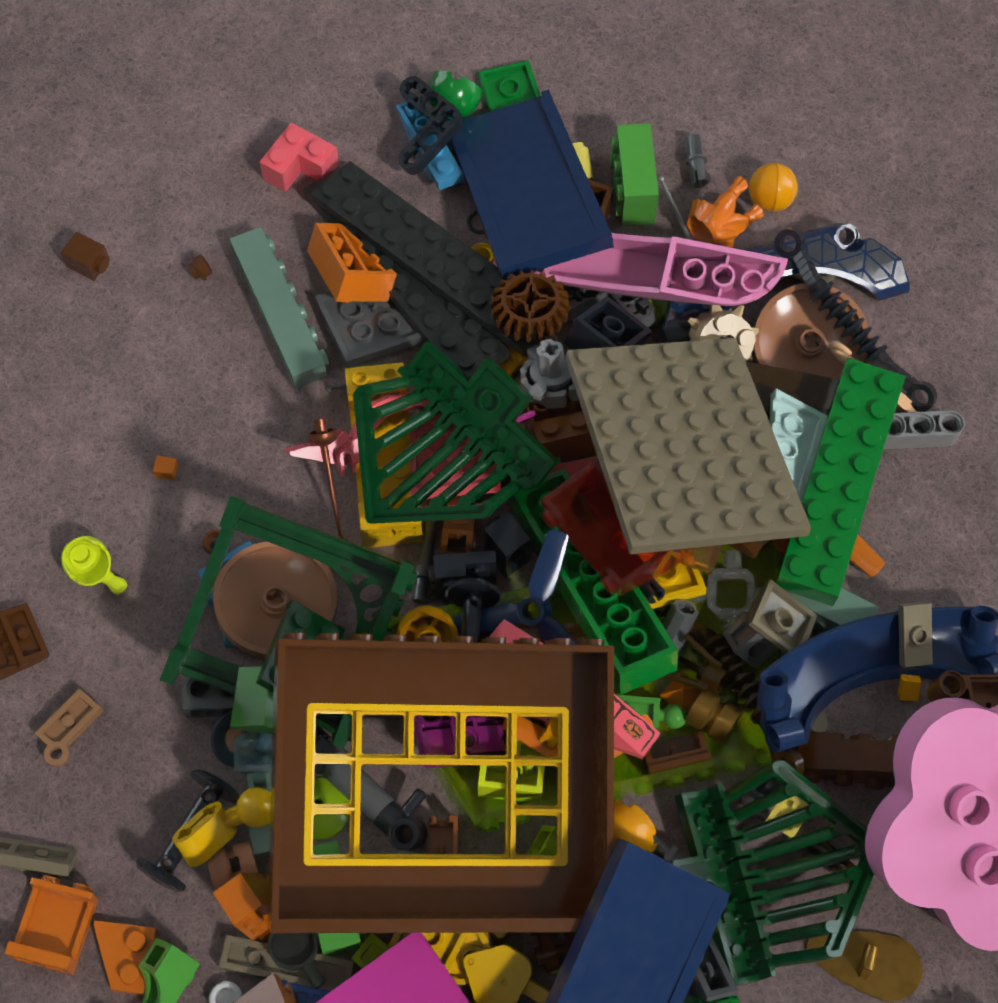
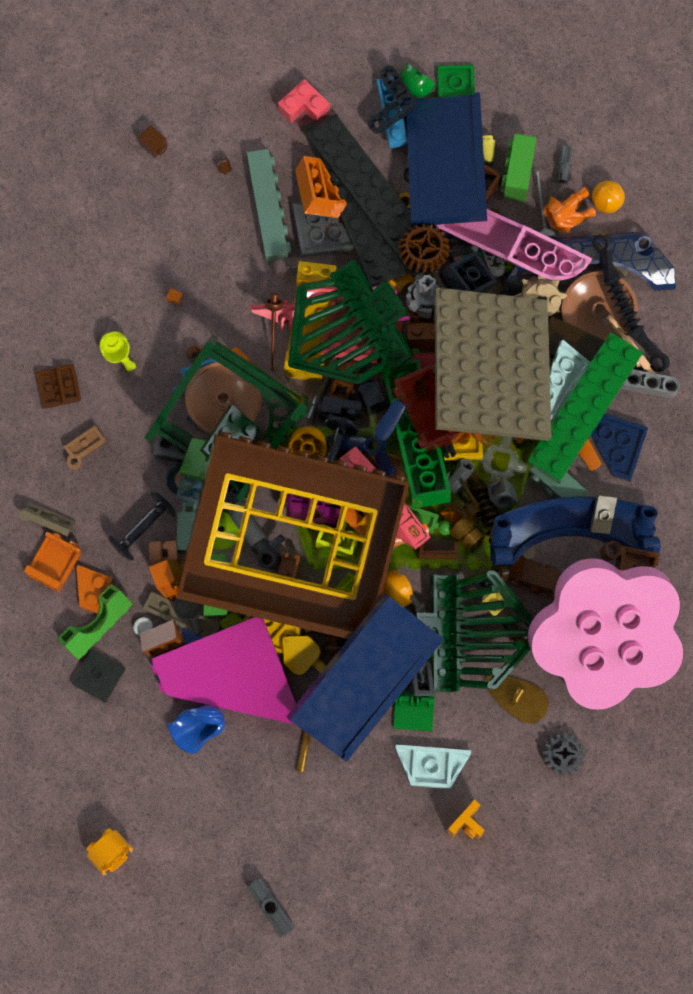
camera: 15 degrees right, 10 degrees up
(216, 826) = (157, 528): yellow beam -> none
(781, 617) = (524, 484): dark tan slope -> none
(903, 530) = (619, 444): none -> dark blue plate
(909, 688) = (592, 544): light orange piece -> none

